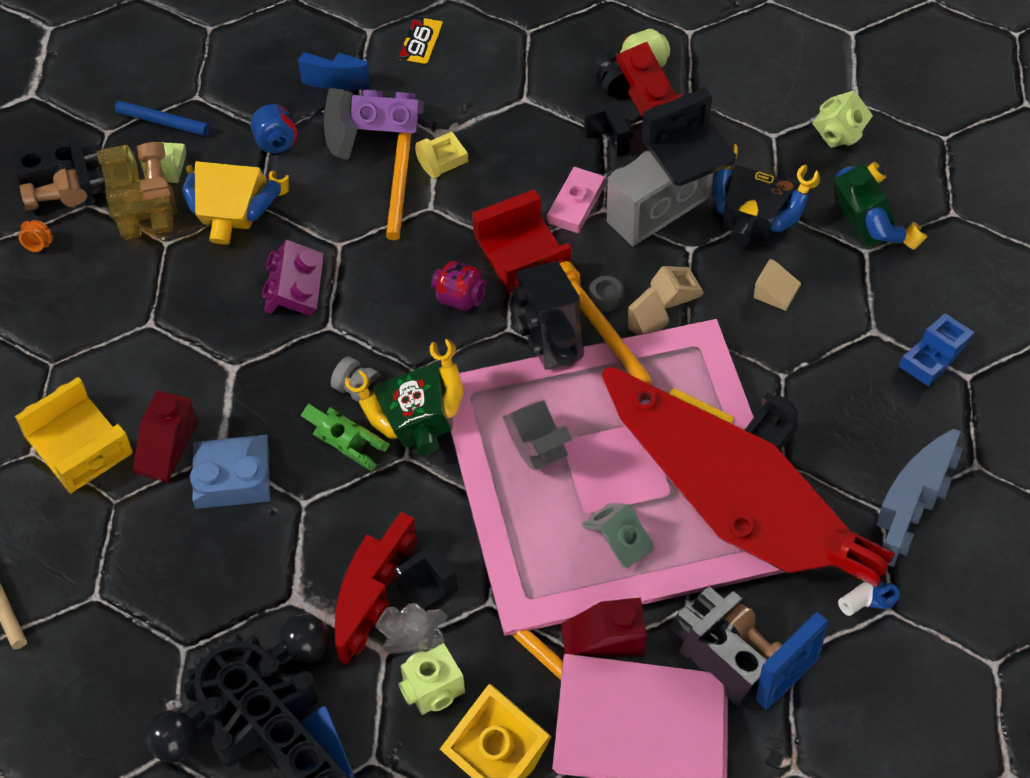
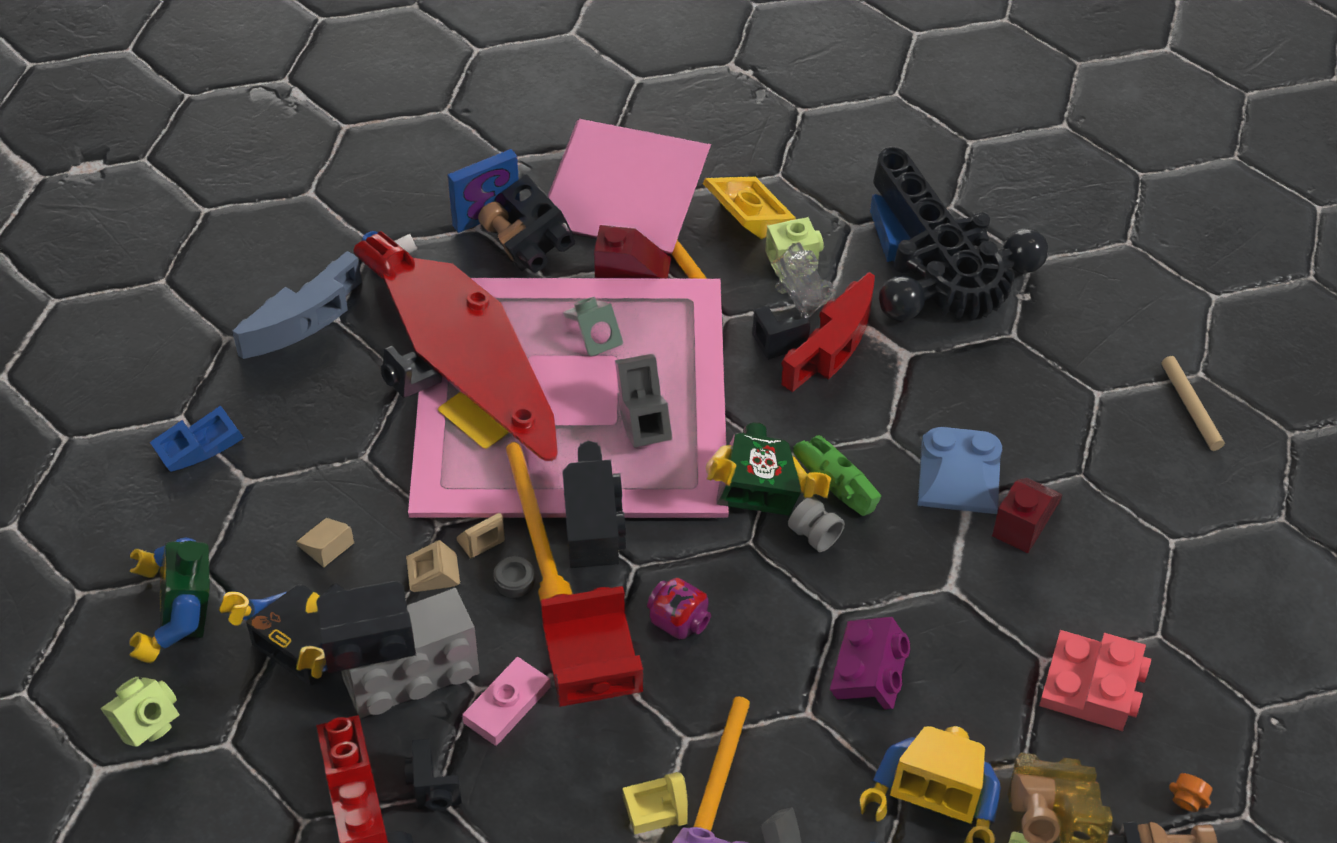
camera: 170 degrees left, 5 degrees down
(73, 435) = (1122, 532): yellow panel -> none
(106, 306) = (1096, 678): none -> coral plate

